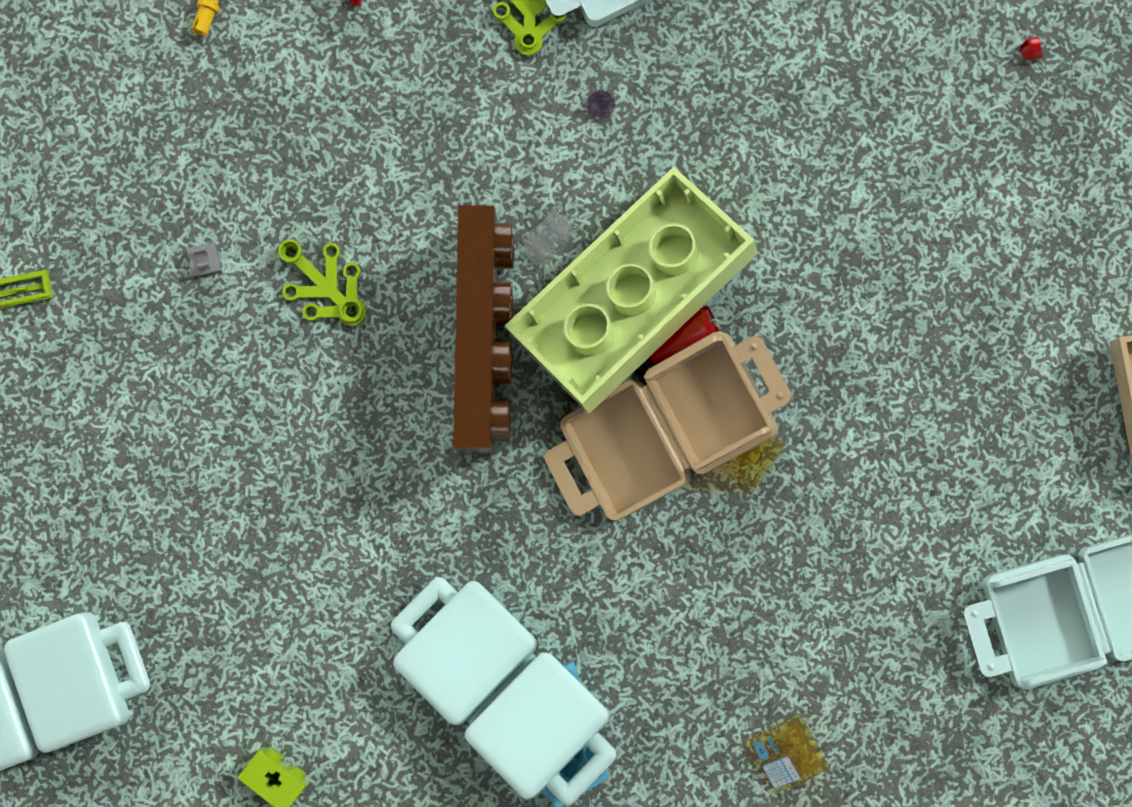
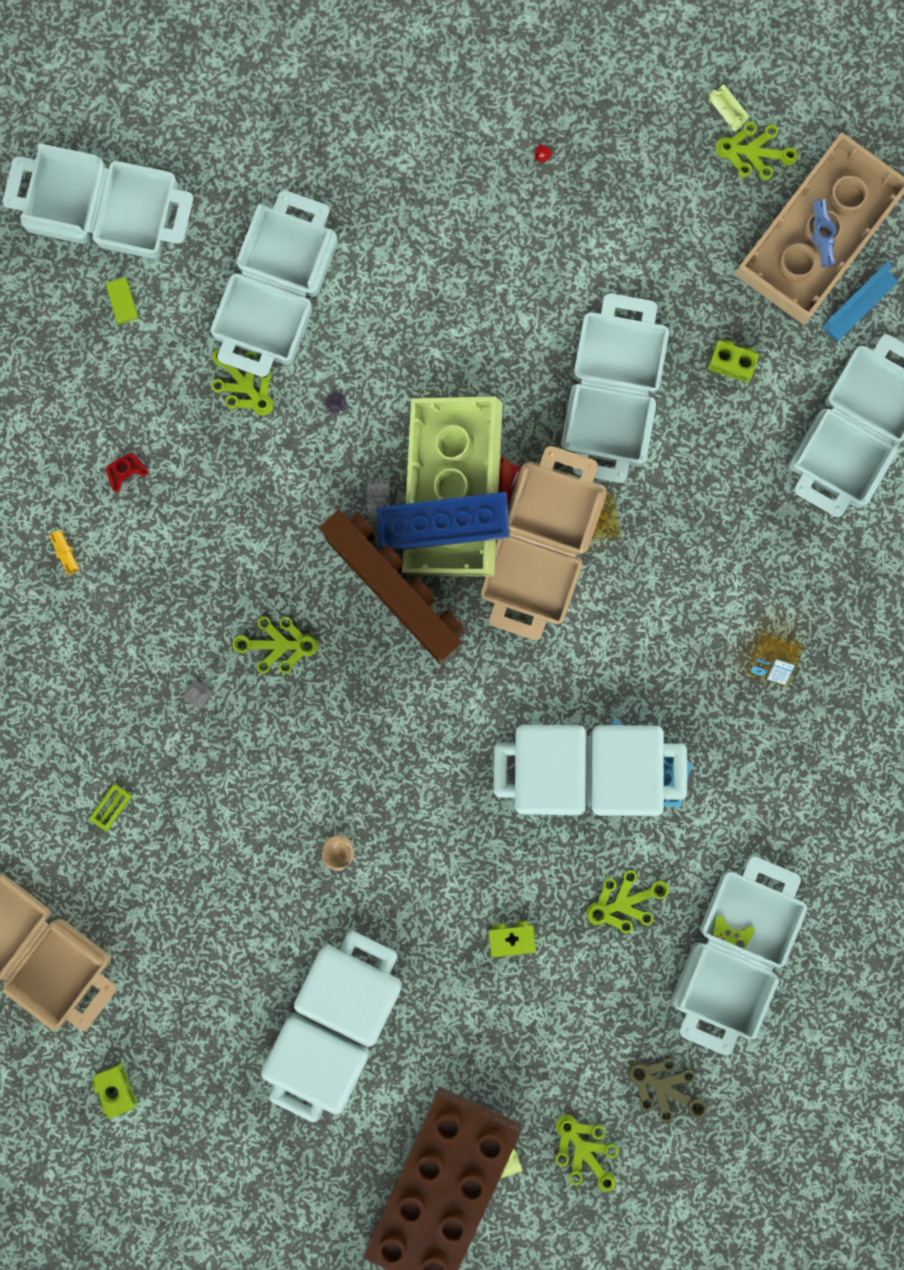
camera: 45 degrees left, 0 degrees up
(189, 536) = (337, 852): none -> tan hair
(588, 315) = (444, 522): none -> blue plate
(903, 328) = (618, 370): none -> light aqua piece
(1019, 429) = (732, 366): none -> lime brick

